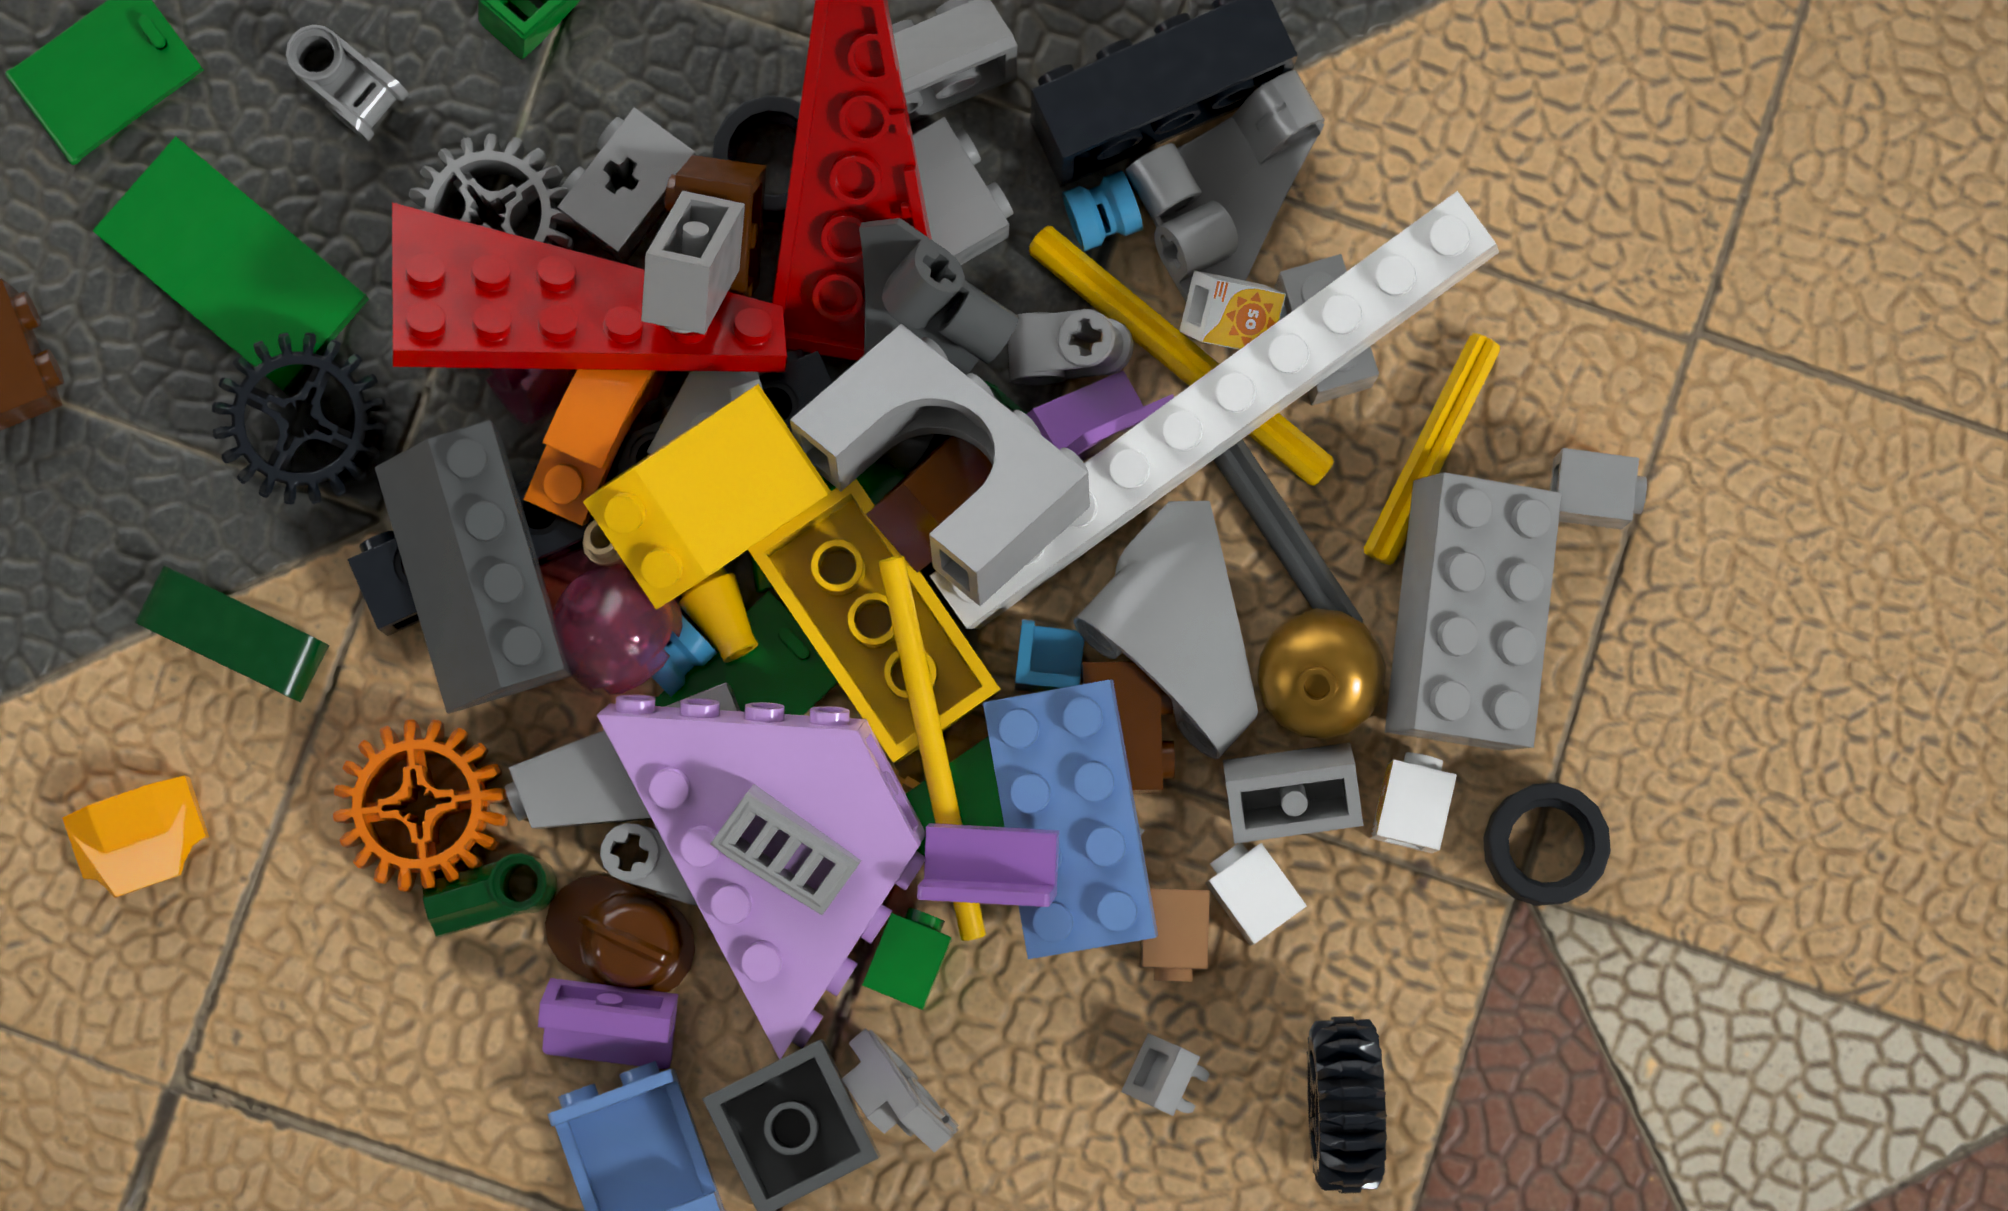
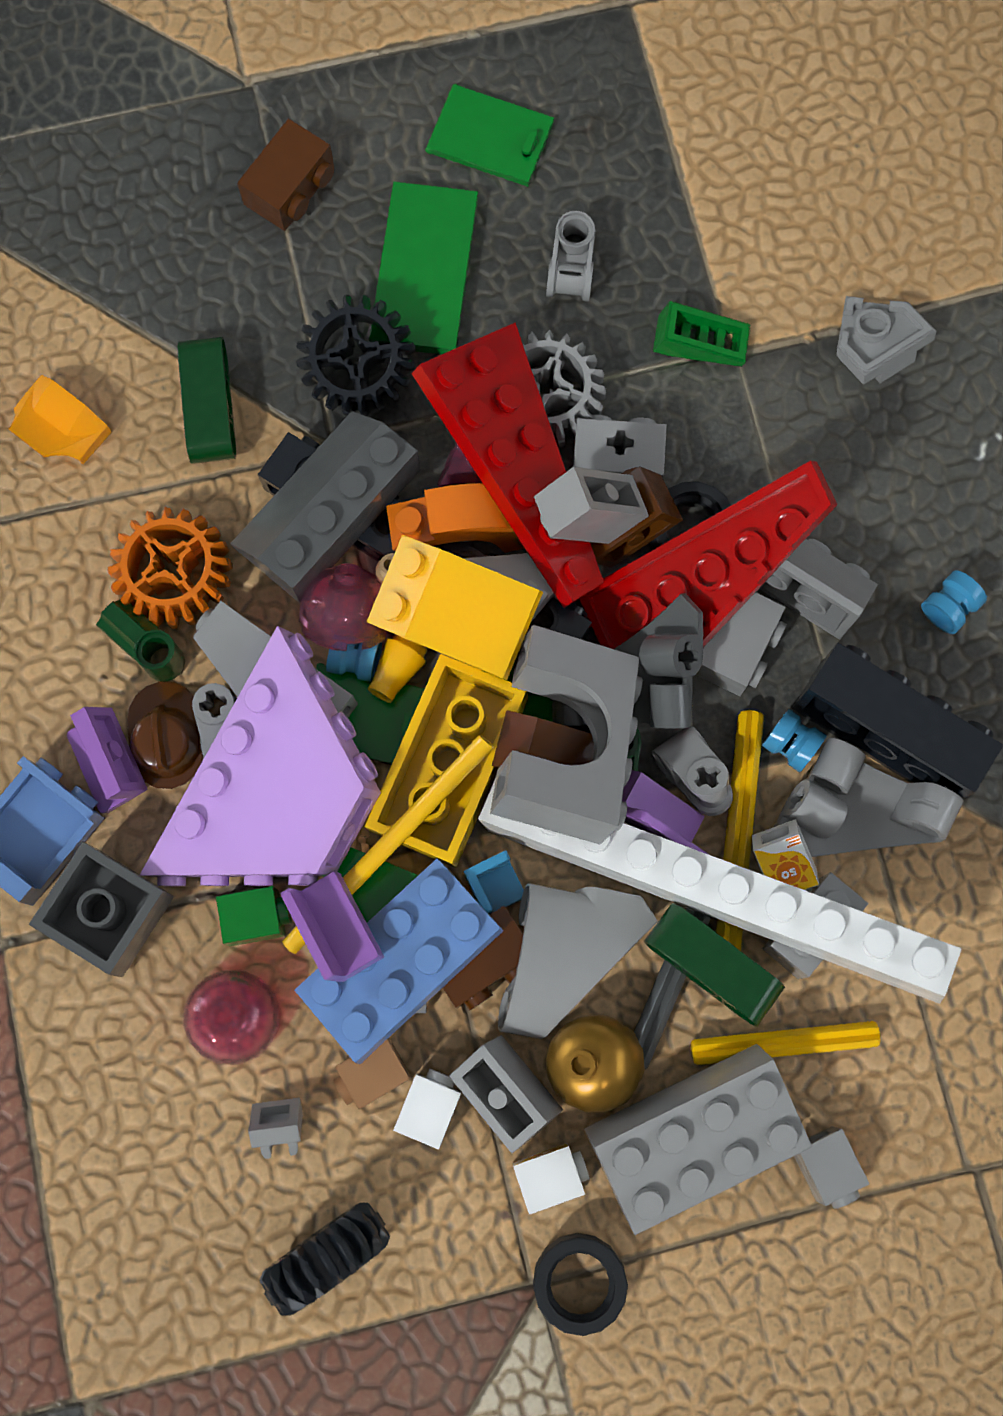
camera: 60 degrees right, 5 degrees down
(772, 870) = (245, 791): light grey slope -> none
(892, 1095) = (157, 962): light grey plate -> none
(1007, 1055) = (231, 1017): none -> clear pink cylinder
(1298, 469) = (714, 964): none -> dark green beam

